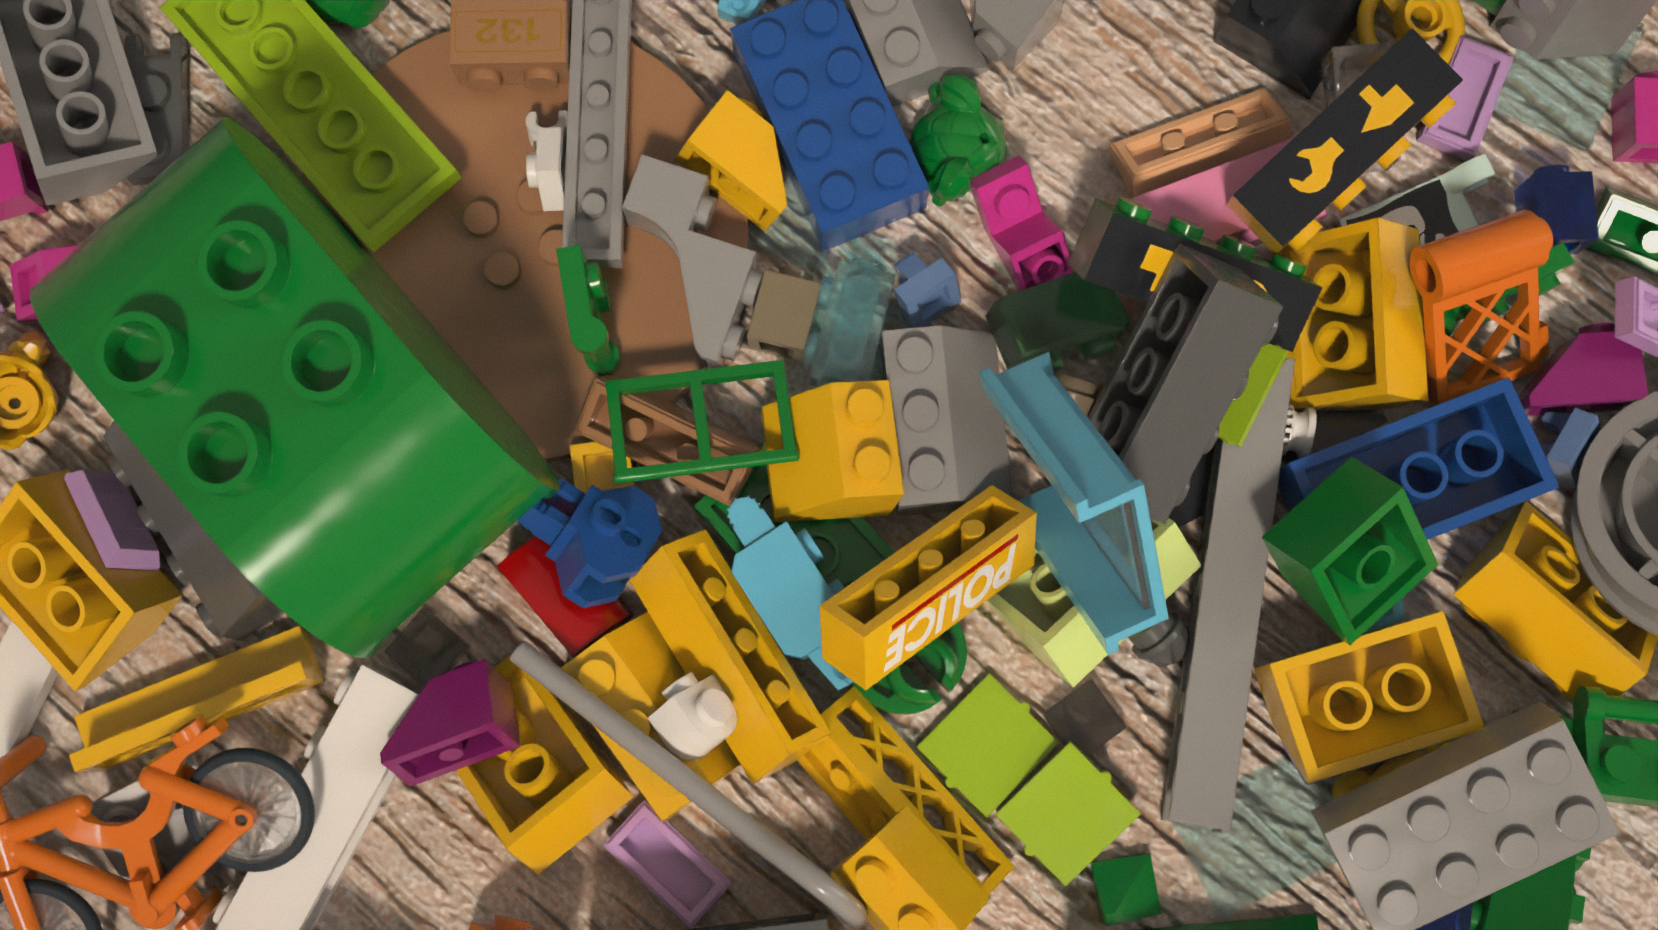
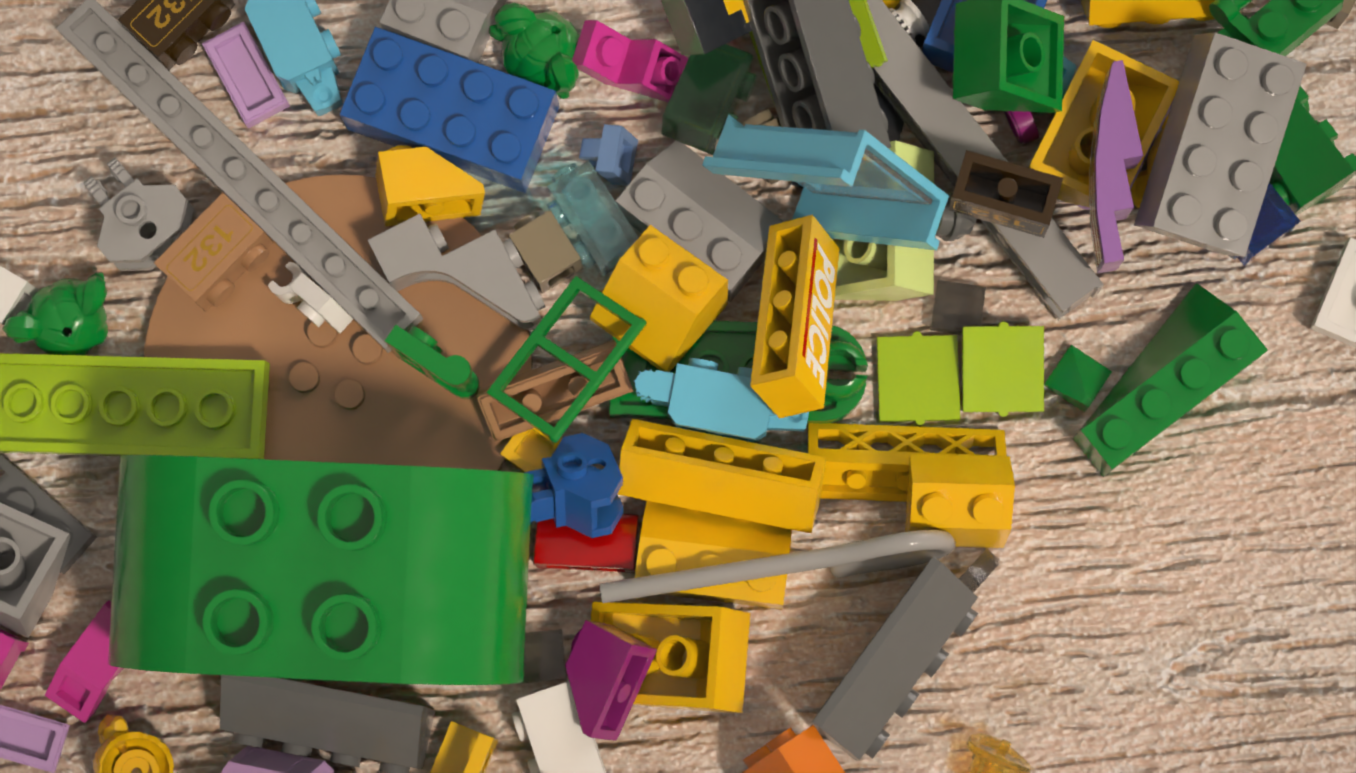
camera: 40 degrees left, 0 degrees up
(667, 864) = (808, 632): lavender tile -> none
(694, 717) = (741, 527): white plate -> none
(1223, 667) = (1005, 194): none -> dark brown brick
(1268, 845) = (1133, 290): clear light blue piece -> none
(1302, 623) = (1022, 126): none -> magenta tile
(1359, 727) = (1113, 151): none -> medium lavender slope

